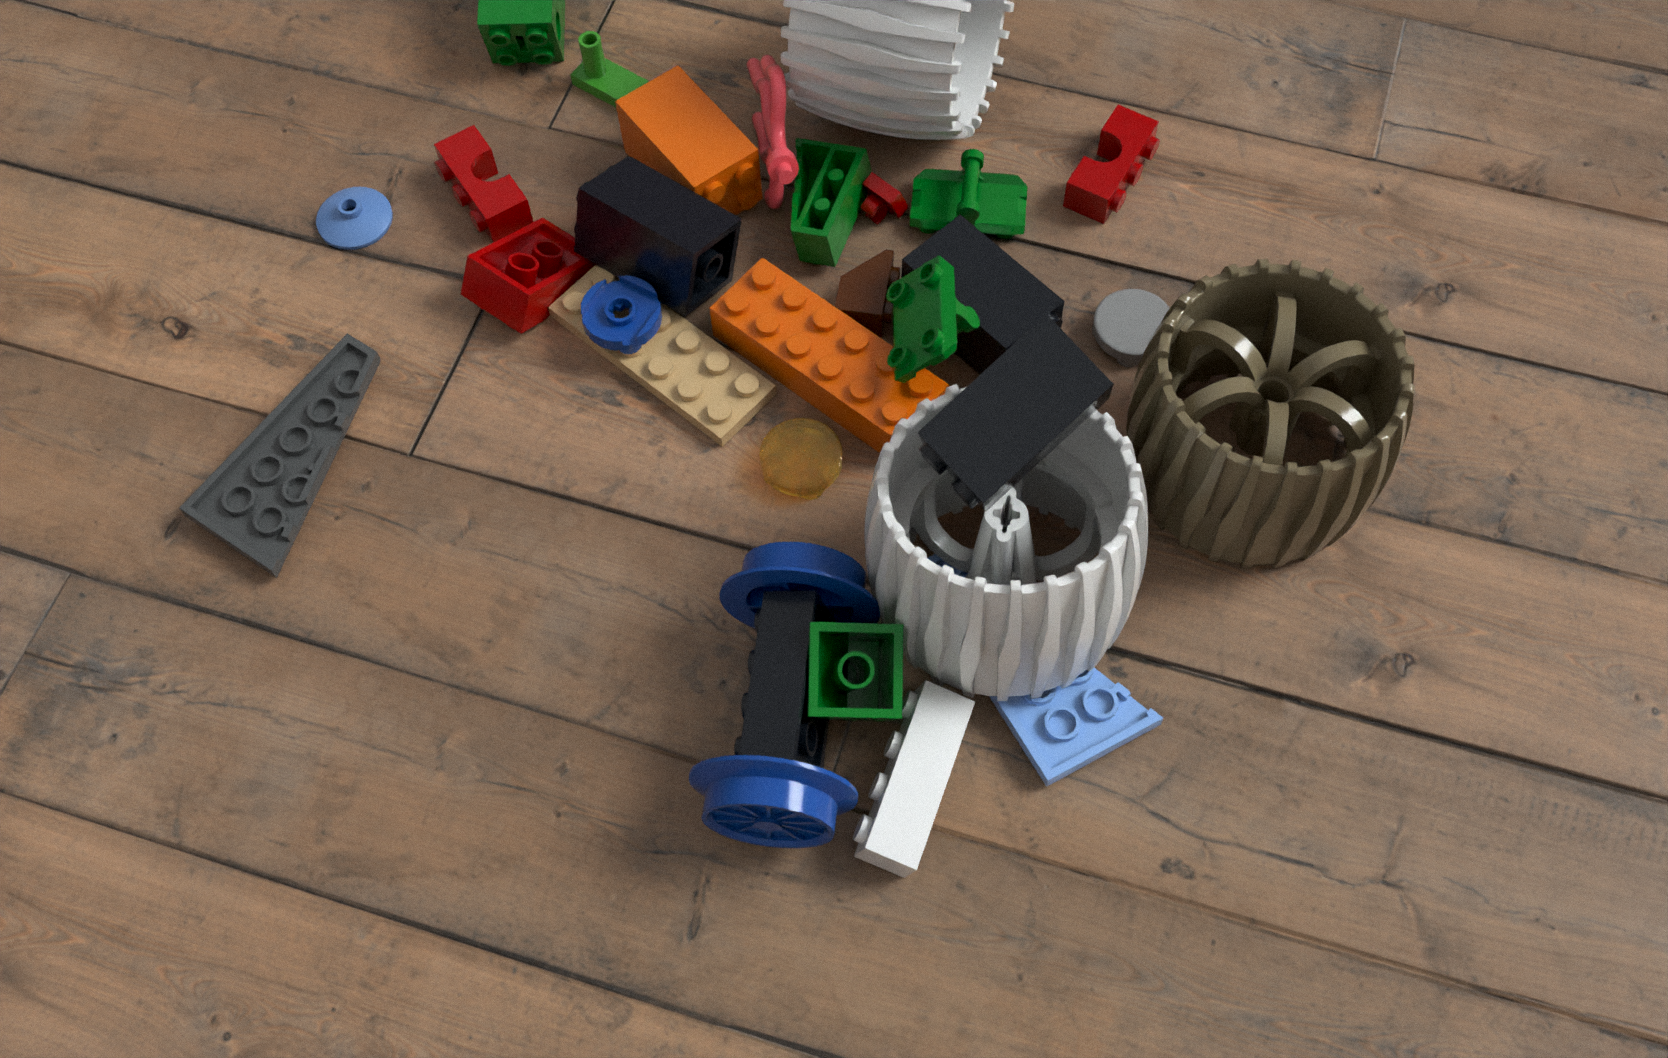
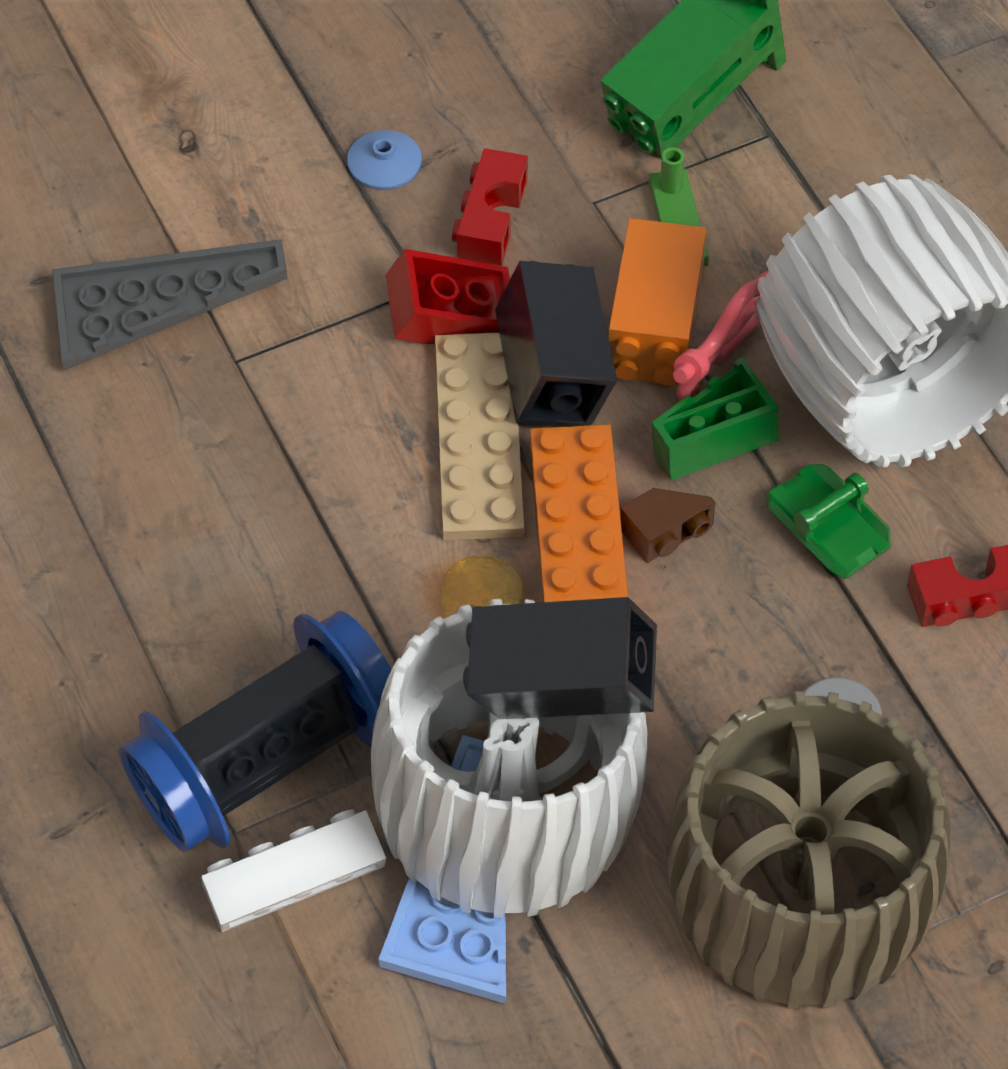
camera: 45 degrees right, 5 degrees down
(624, 333) = (472, 400): blue plate -> none
(855, 671) = (315, 755): green slope -> none
(882, 199) = (763, 459): red tile -> none
(926, 318) = (656, 560): green shield -> none
(993, 284) = (731, 597): black brick -> none

